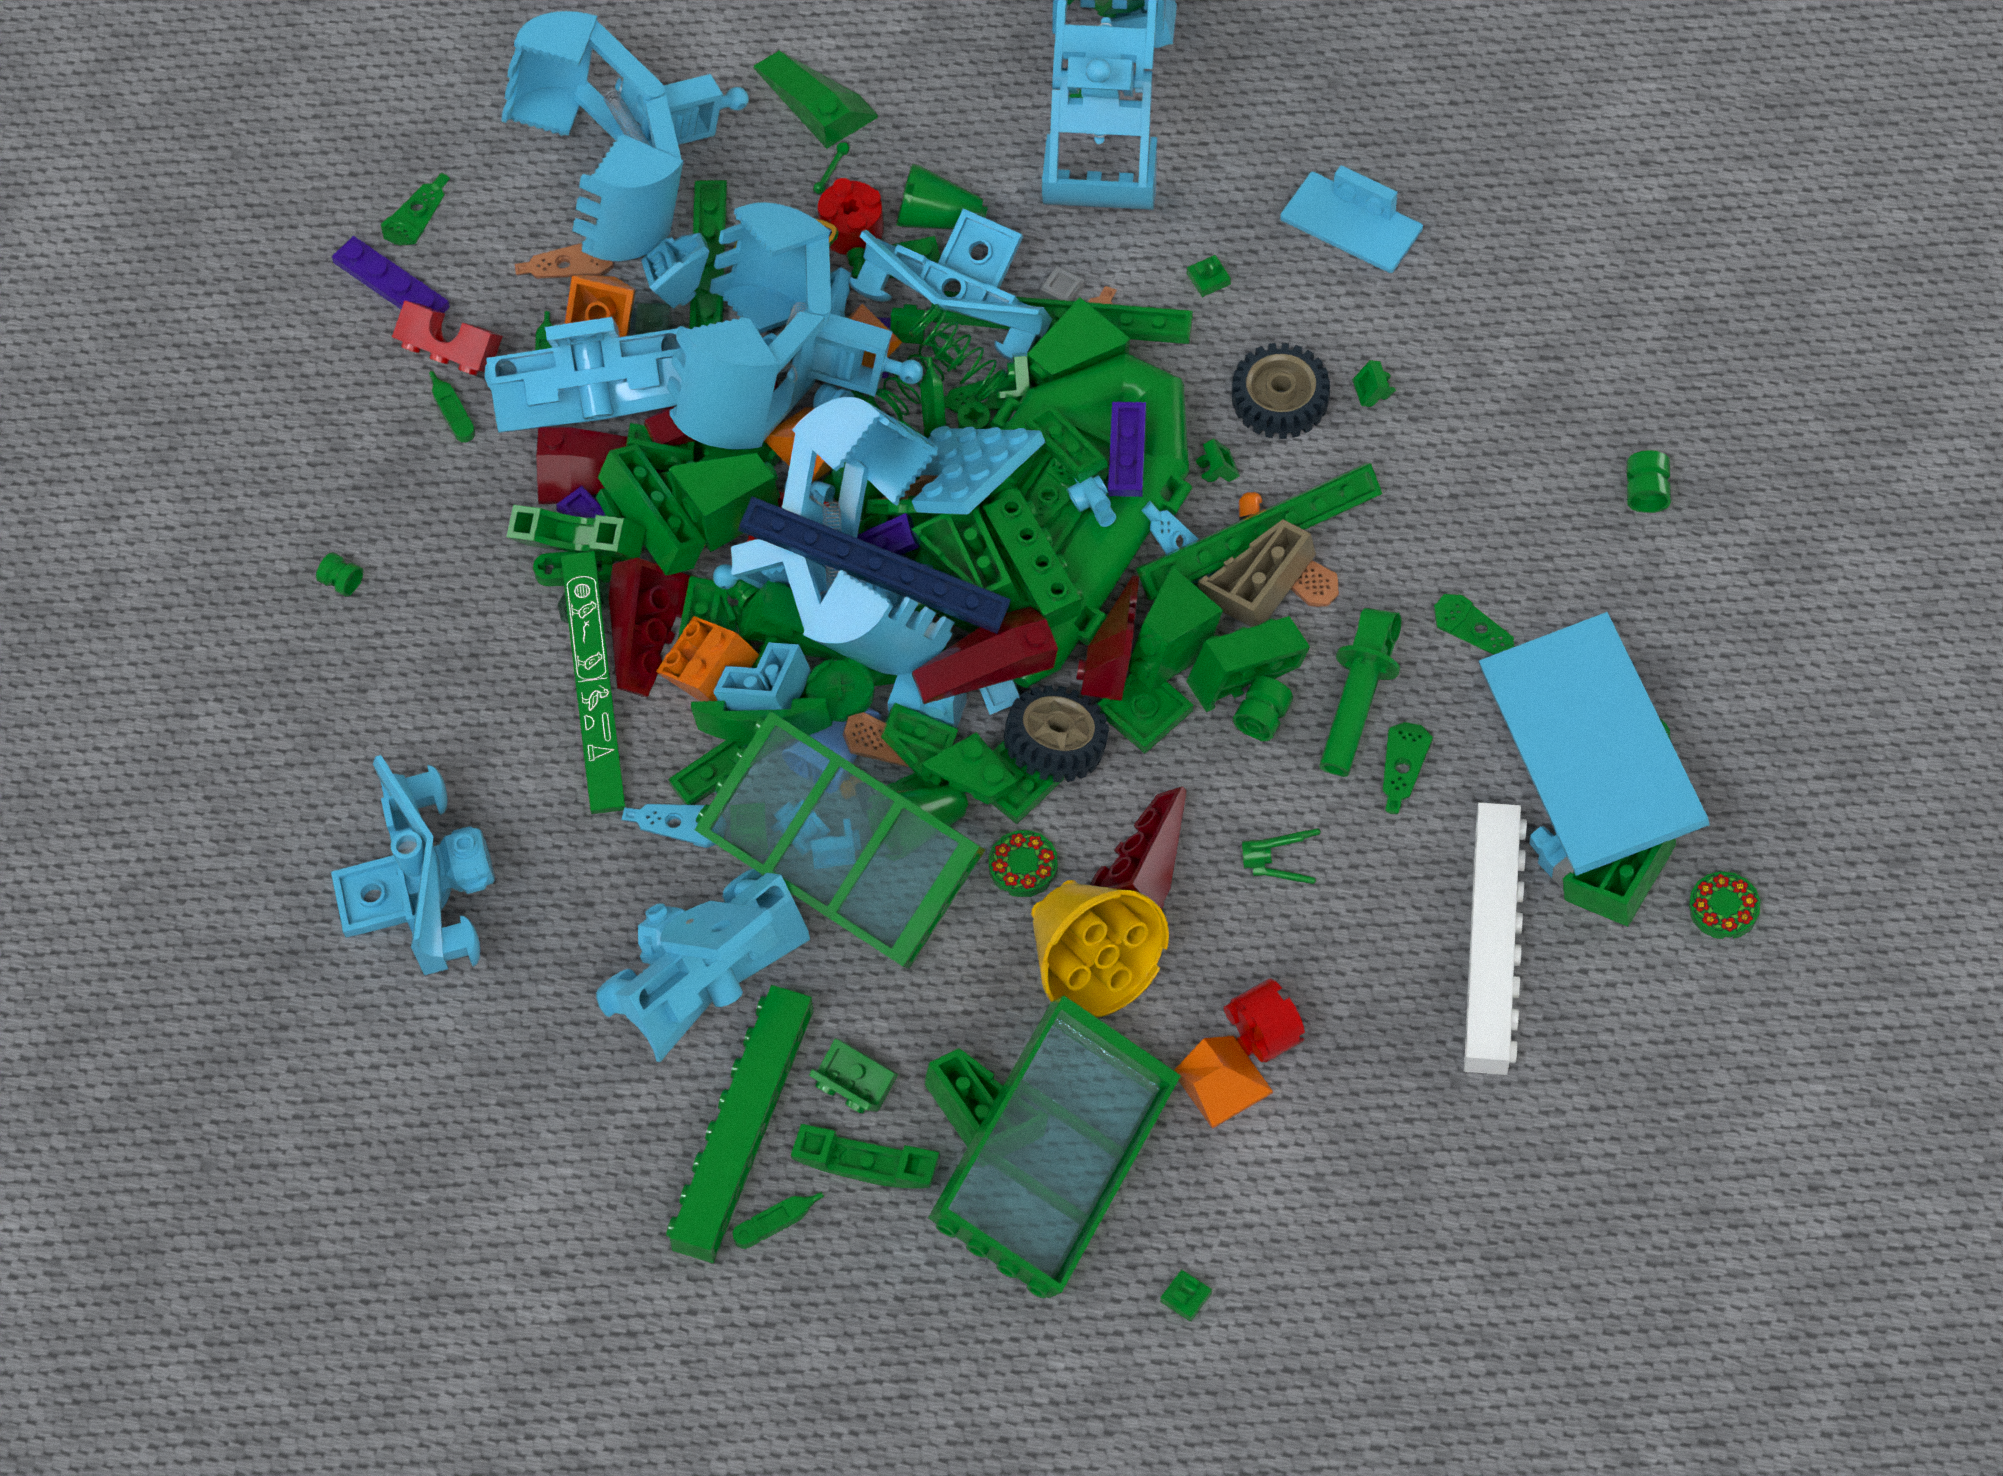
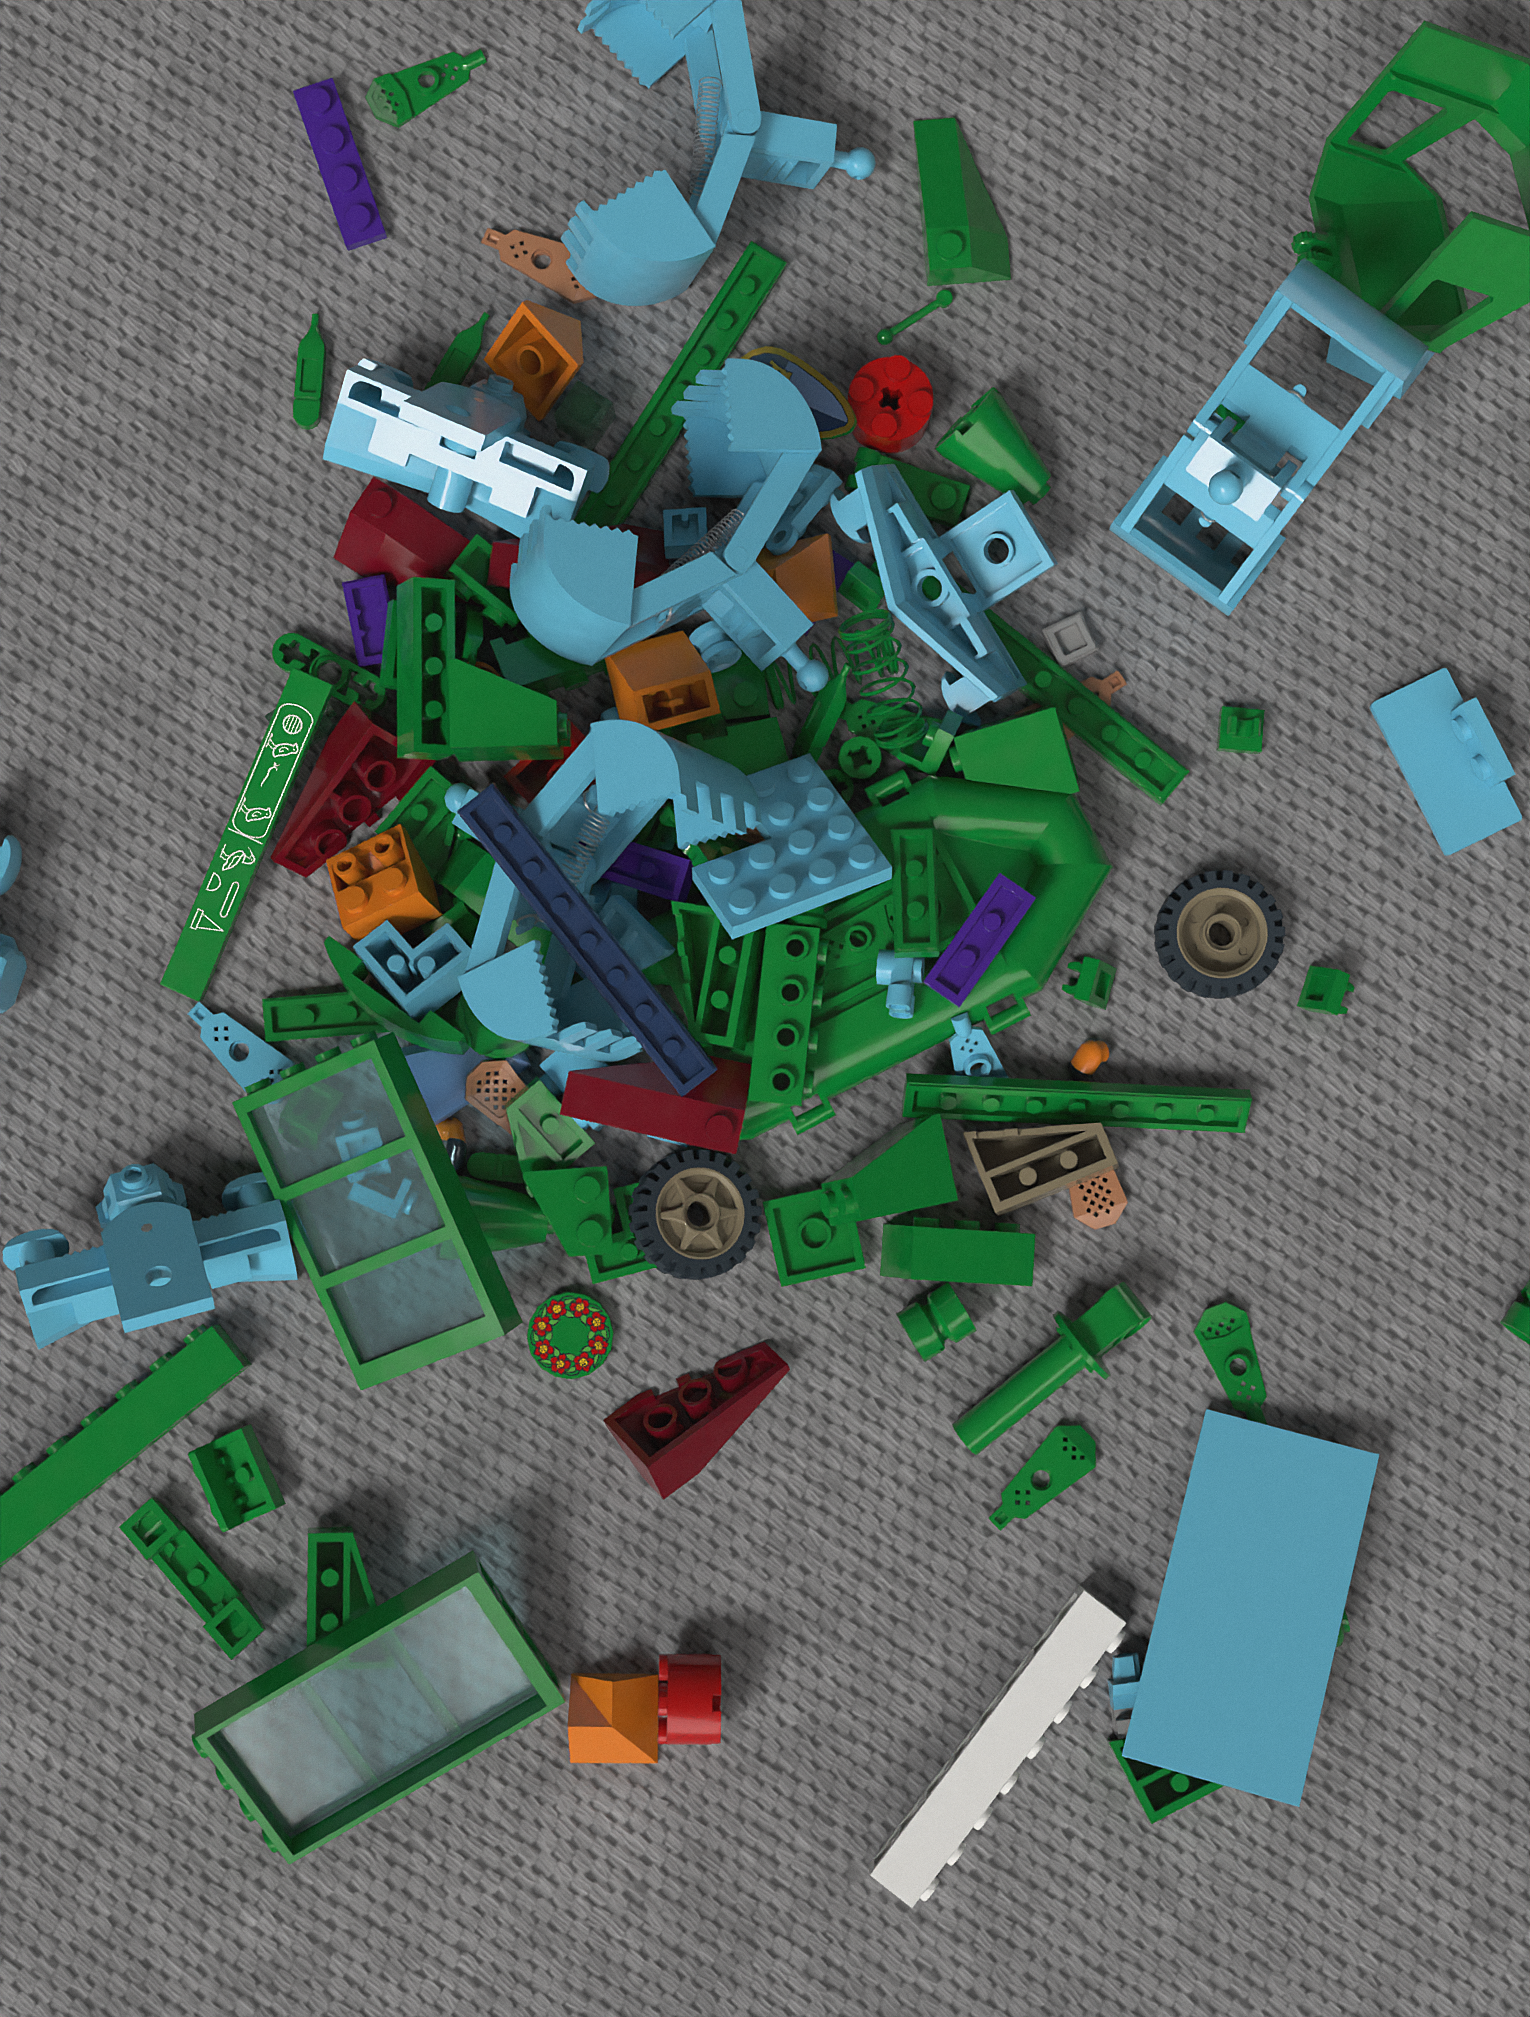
camera: 30 degrees right, 25 degrees up
(338, 573) = (65, 520): green wheel -> none
(421, 329) = (328, 258): arch -> none
(570, 533) = (309, 608): green arch -> none
(676, 268) = (643, 359): medium azure wedge -> none
(773, 1220) = (64, 1579): green piece -> none
(1098, 945) = (563, 1499): yellow cone -> none
(1110, 650) = (809, 1165): dark red wedge -> none
(1186, 1295) = (422, 1932): green tile -> none
(1258, 853) = (819, 1487): green plant -> none
(1724, 905) = (1267, 1859): tile -> none

